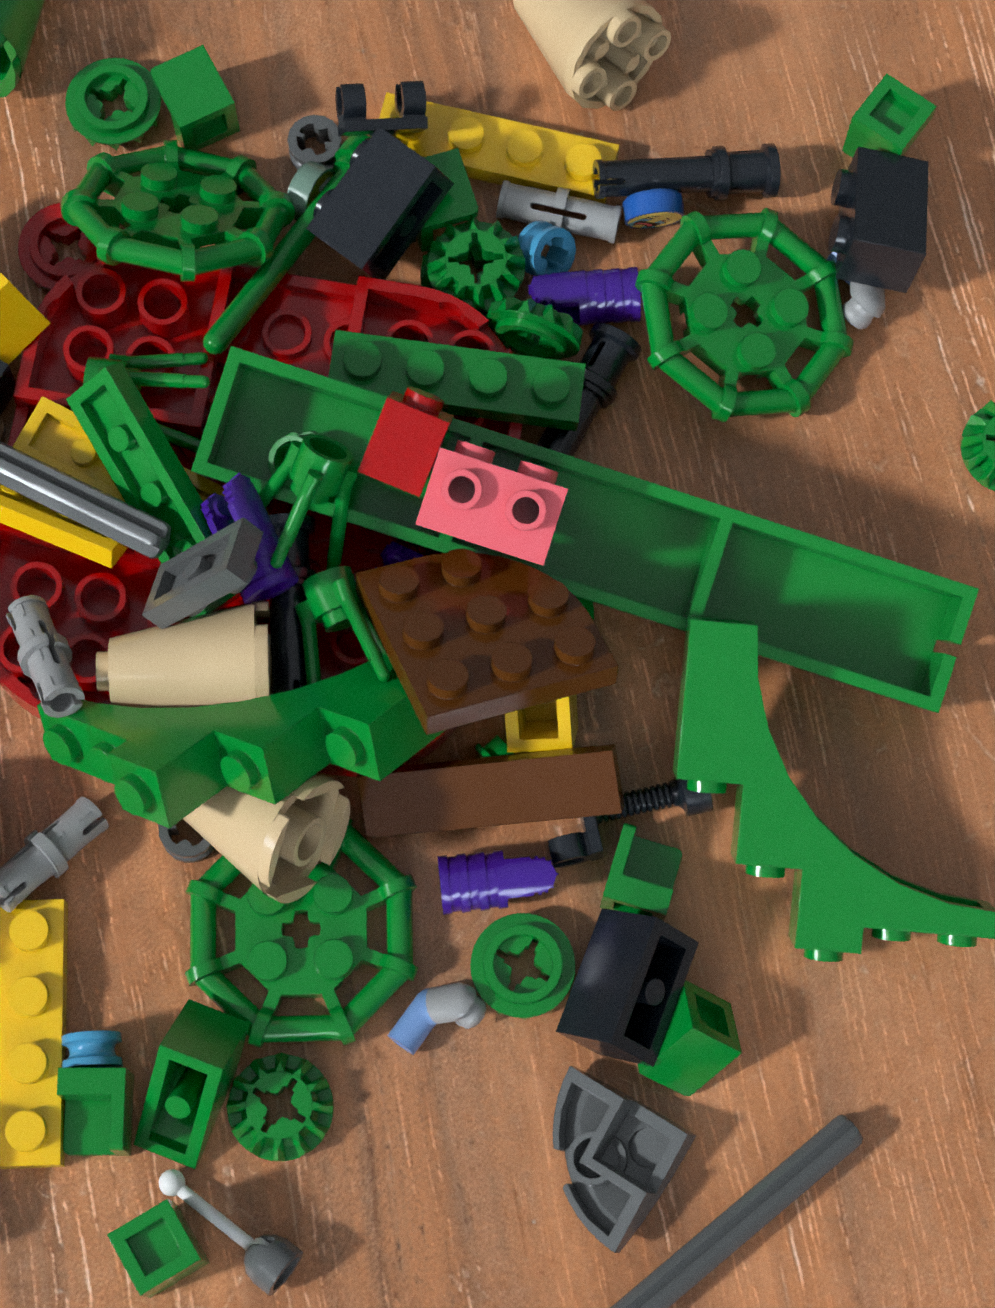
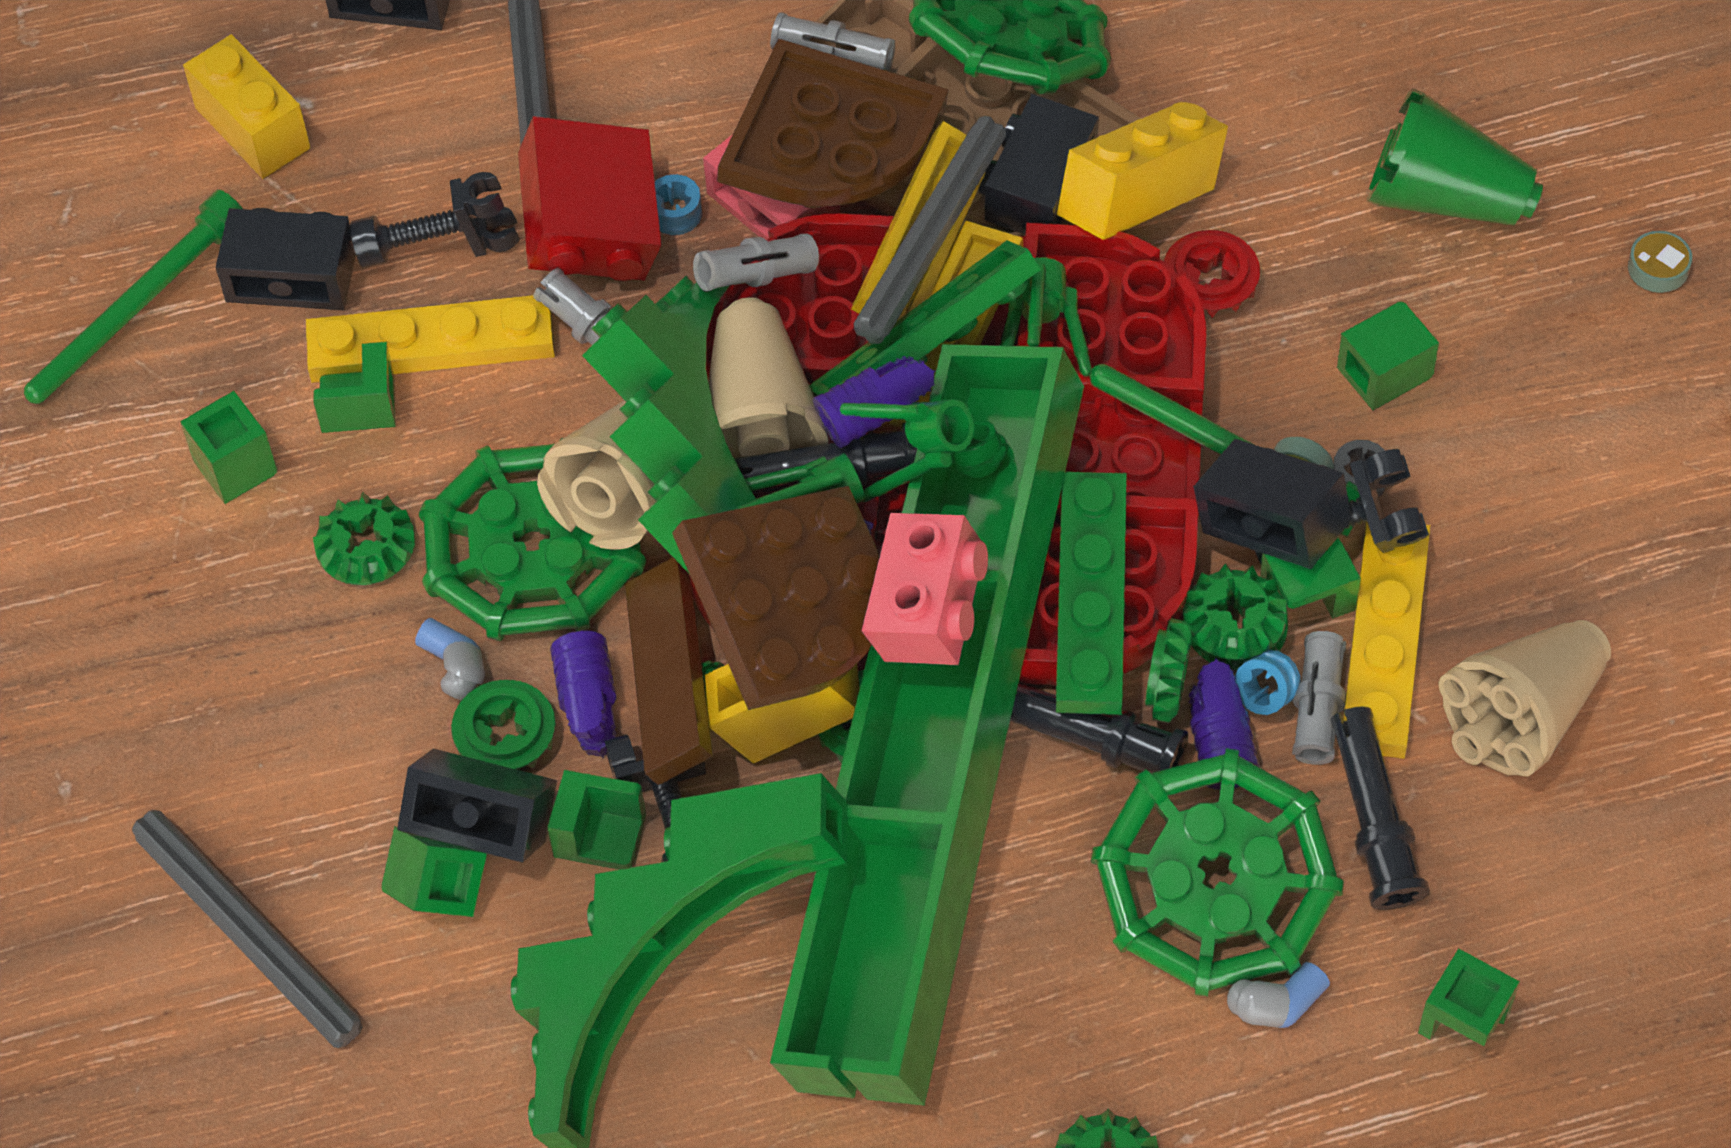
camera: 90 degrees right, 15 degrees down
(92, 1049) = (410, 380): dark azure bush -> none
(106, 81) = (1362, 272): green gear -> none
(173, 206) = (1240, 380): green plate -> none
(190, 1082) = (385, 455): green slope -> none
(204, 574) = (827, 354): dark grey plate -> none
(267, 1258) = (221, 539): hinge -> none
(406, 440) = (987, 493): red brick -> none
(615, 1155) = (322, 825): dark grey brick -> none
(653, 208) = (1332, 780): blue tile -> none
(880, 219) = (1347, 995): black brick -> none

